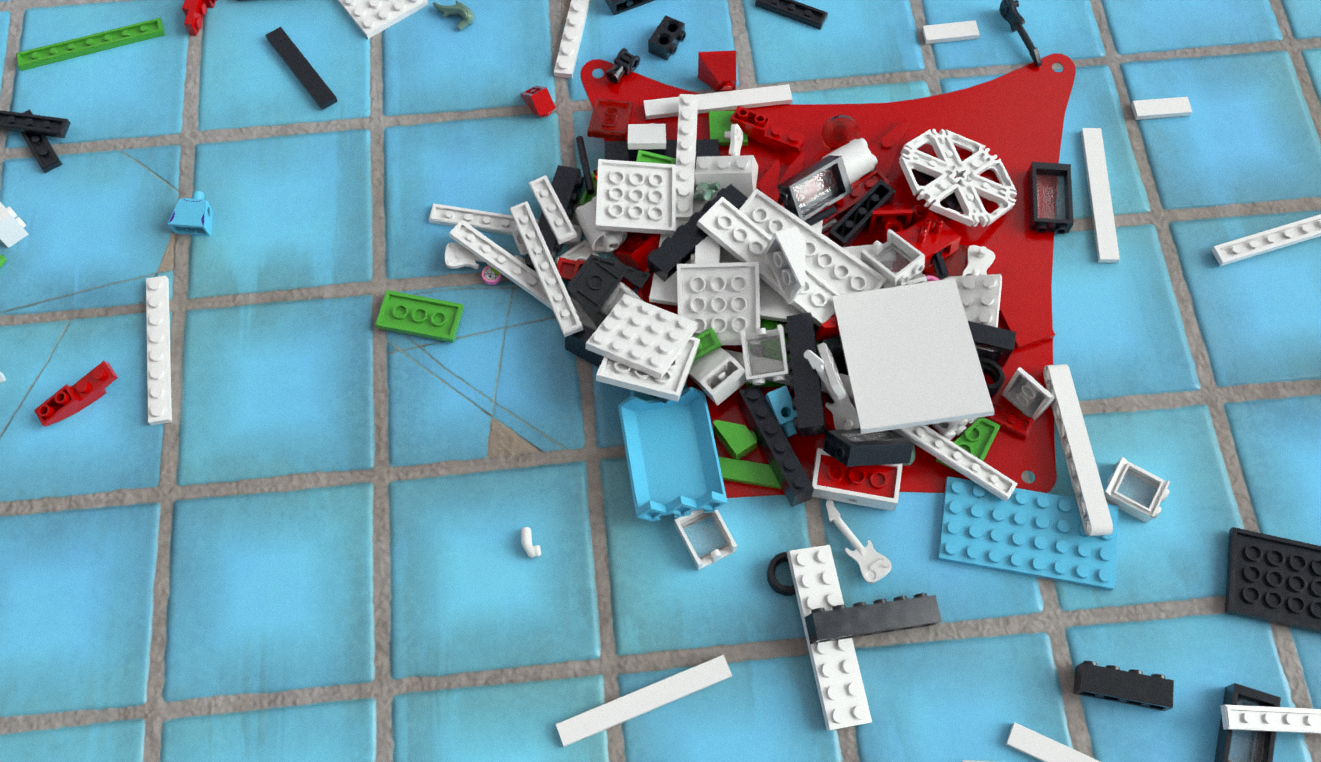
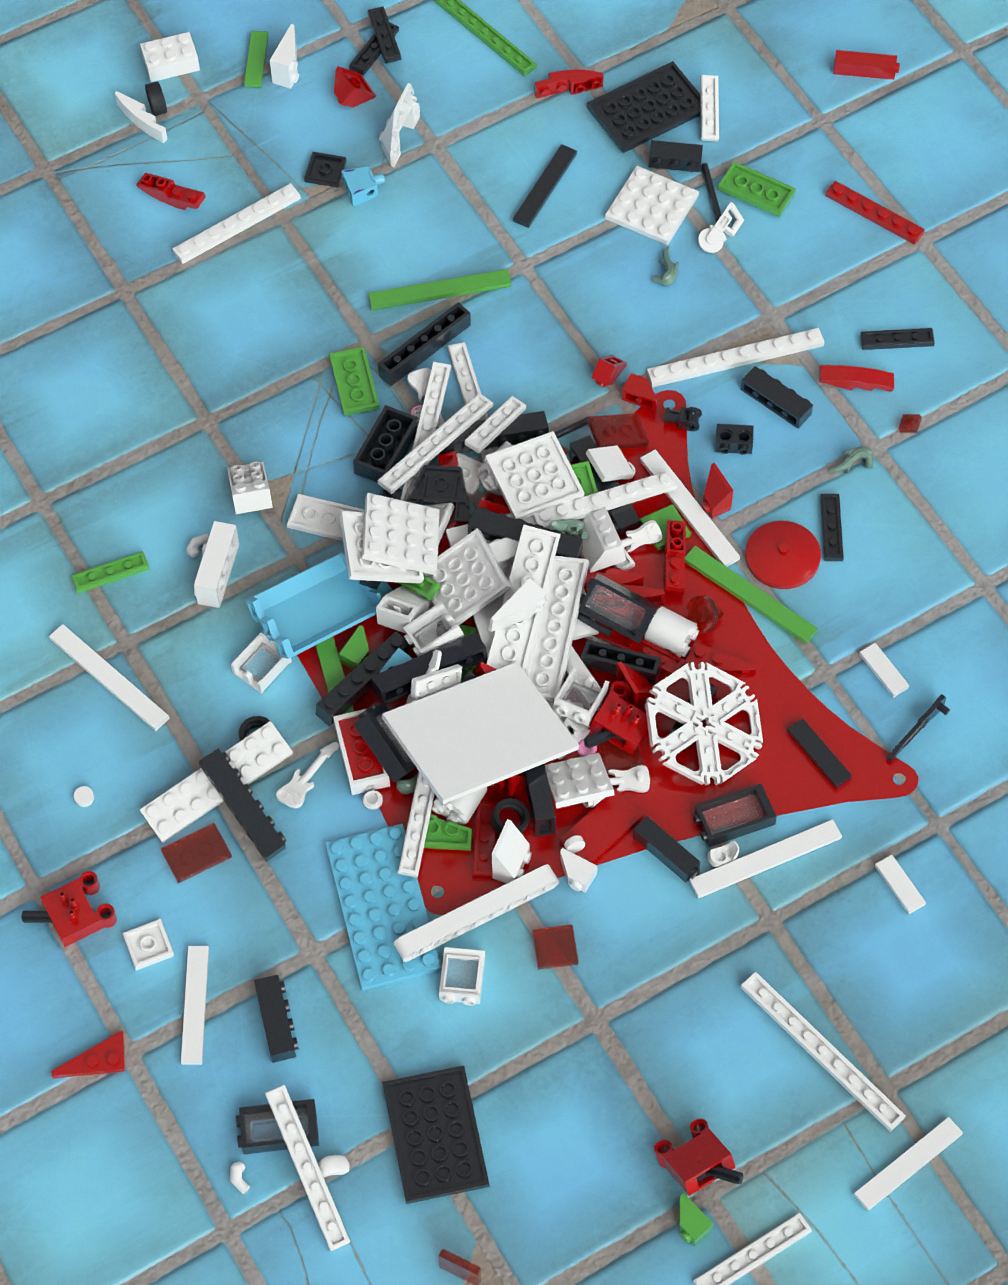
camera: 65 degrees right, 5 degrees down
(72, 178) = (351, 88): none -> red slope
(150, 242) = (325, 169): none -> black tile
(151, 153) = (405, 114): none -> white wedge
(359, 202) = (439, 289): none -> bright green tile
(419, 236) = (424, 344): none -> black brick
(489, 463) = (249, 487): none -> white slope
(514, 648) = (110, 572): none -> bright green tile
(515, 316) = (385, 443): none -> black brick
(564, 406) = (318, 516): none -> white tile
(571, 531) = (216, 564): none -> white brick
(577, 86) = (639, 392): none -> red slope
(800, 54) = (783, 554): none -> red dish
(832, 93) = (750, 595): none -> bright green tile
(897, 692) = (196, 853): none -> clear red tile
(908, 493) = (372, 800): none -> white plate
(1012, 111) = (819, 753): none -> black tile
(1035, 333) = (574, 844): none -> white tile
(1060, 345) = (577, 871): none -> white slope
(1065, 263) = (666, 849): none -> black brick
(1085, 221) = (724, 854): none -> white hair
(1127, 397) = (555, 947): none -> clear red tile
(1305, 694) = (334, 1165): none -> white hair

